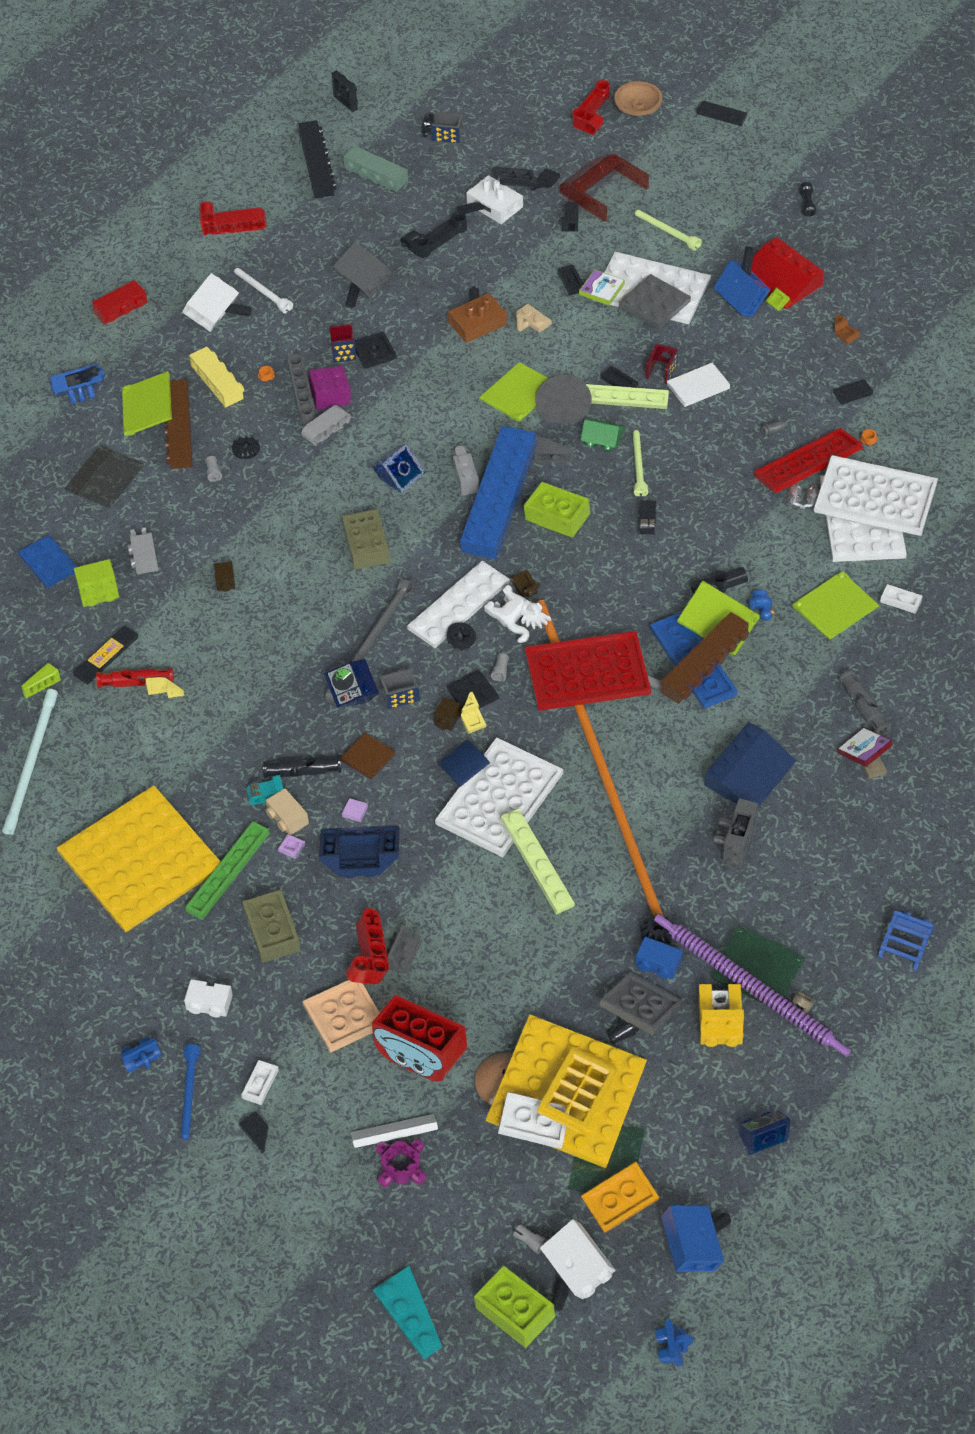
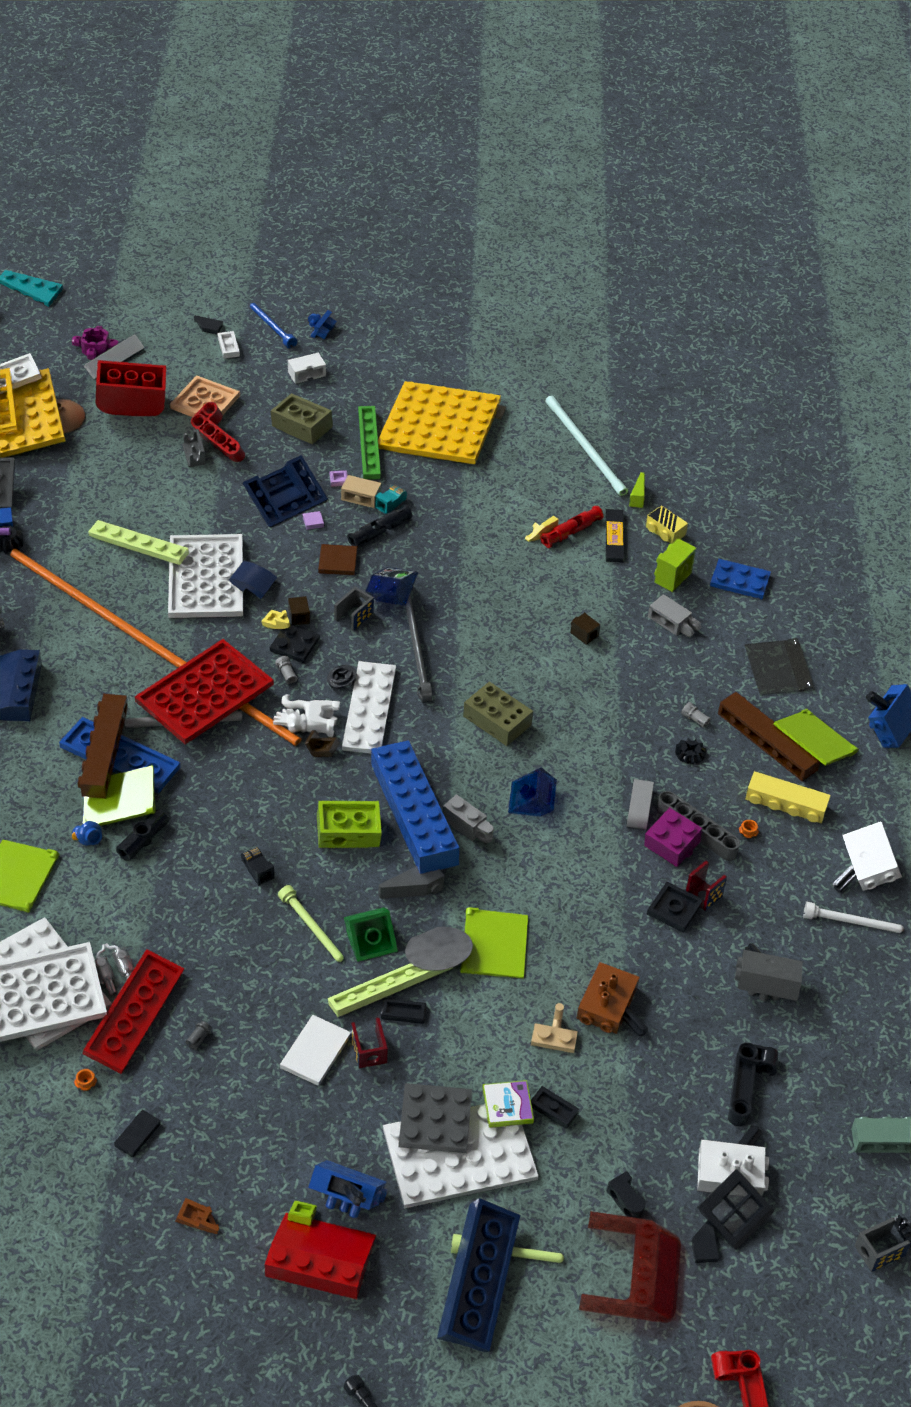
camera: 140 degrees right, 5 degrees down
(55, 634) = (666, 525): none -> light yellow brick
(697, 218) = (479, 1276): none -> dark blue arch

